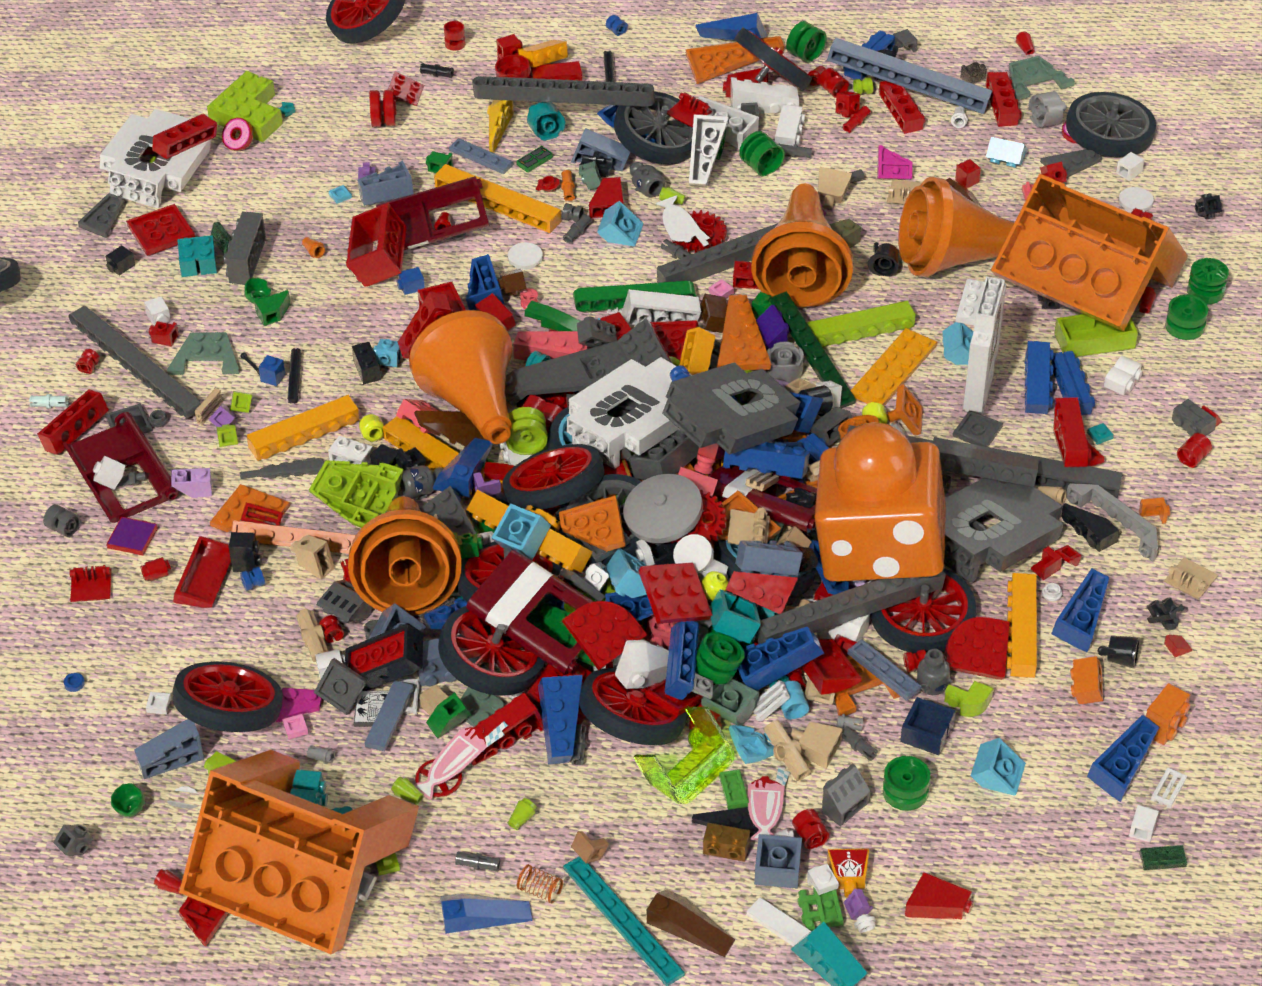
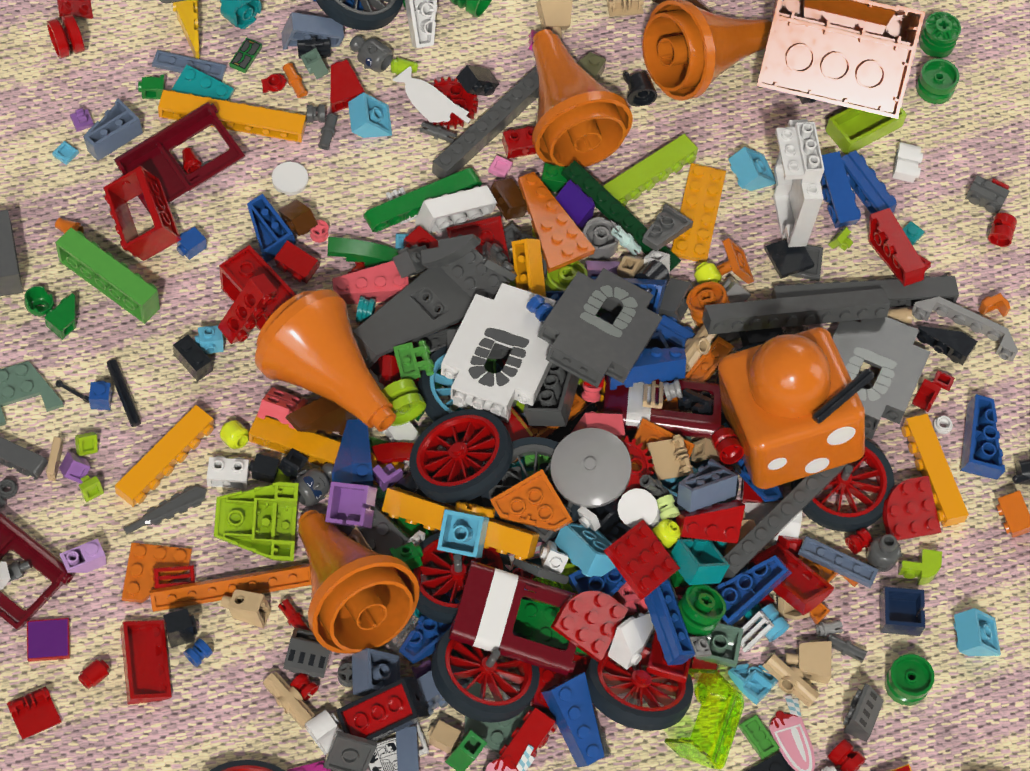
camera: 30 degrees left, 15 degrees up
(325, 284) = (108, 275): none -> bright green brick
(436, 490) = (351, 504): none -> medium lavender piece
(482, 168) = (200, 84): none -> teal wing
(548, 401) = (407, 362): none -> bright green plate
(628, 327) = (449, 250): none -> dark grey slope
(669, 344) = (497, 260): none -> dark grey wing
(716, 540) = (653, 486): none -> dark grey pin
(725, 564) = (667, 507): none -> yellowish green wheel
(731, 217) = (477, 80): none -> black brick
(784, 483) = (673, 390): none -> light grey wheel
(806, 366) = (626, 240): none -> light aqua pin
(807, 535) = (727, 445): none -> red wheel
(850, 367) = (666, 228): none -> dark grey wing
(918, 492) = (842, 396): none -> black axle
(962, 422) = (788, 259): none -> black tile
(1023, 420) = (841, 240): none -> lime tile

